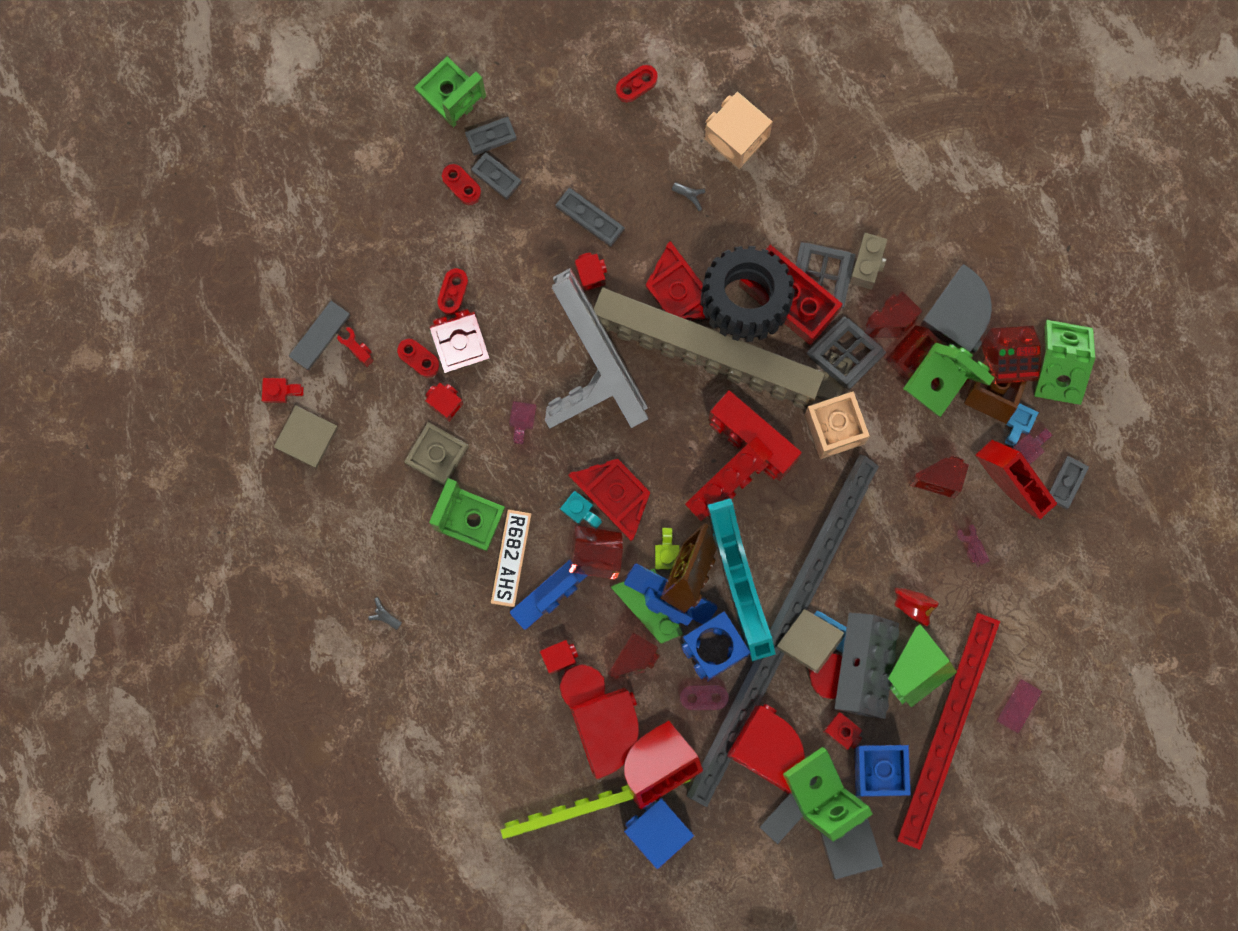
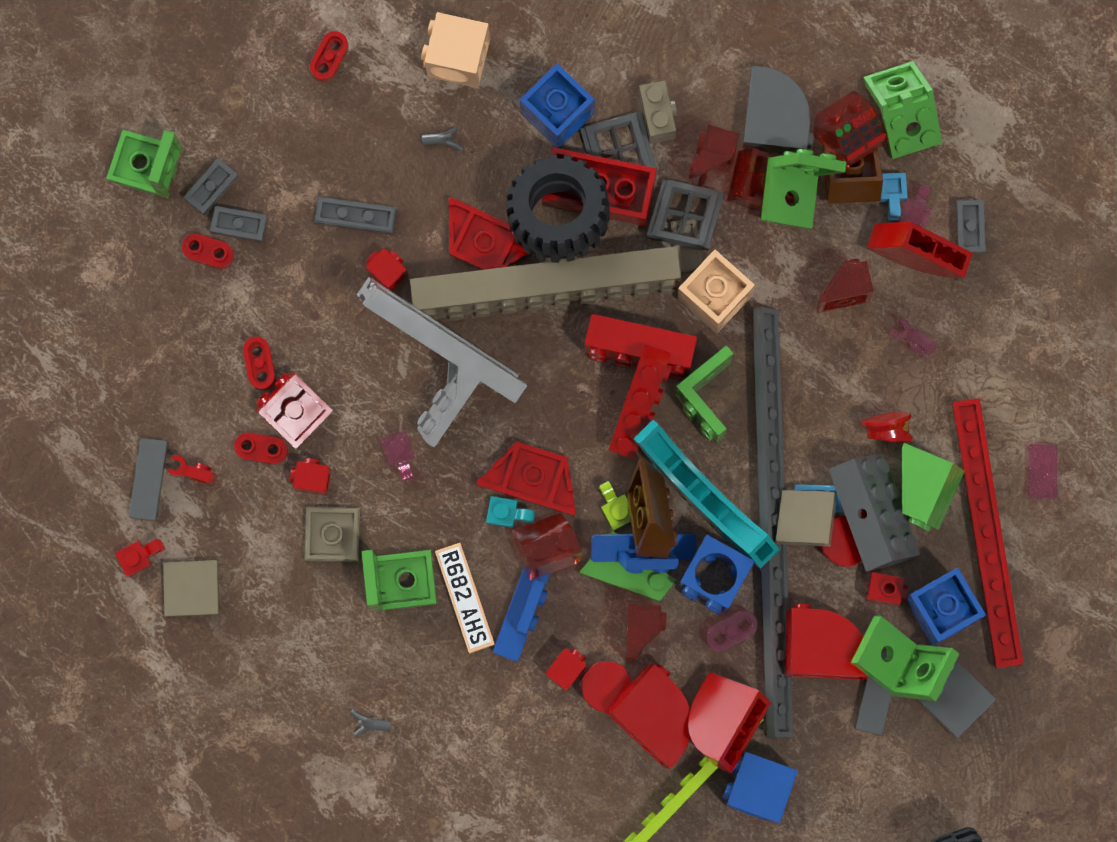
camera: 25 degrees left, 0 degrees up
(780, 487) = (693, 405): none -> bright green bracket
(792, 214) = (557, 106): none -> blue brick

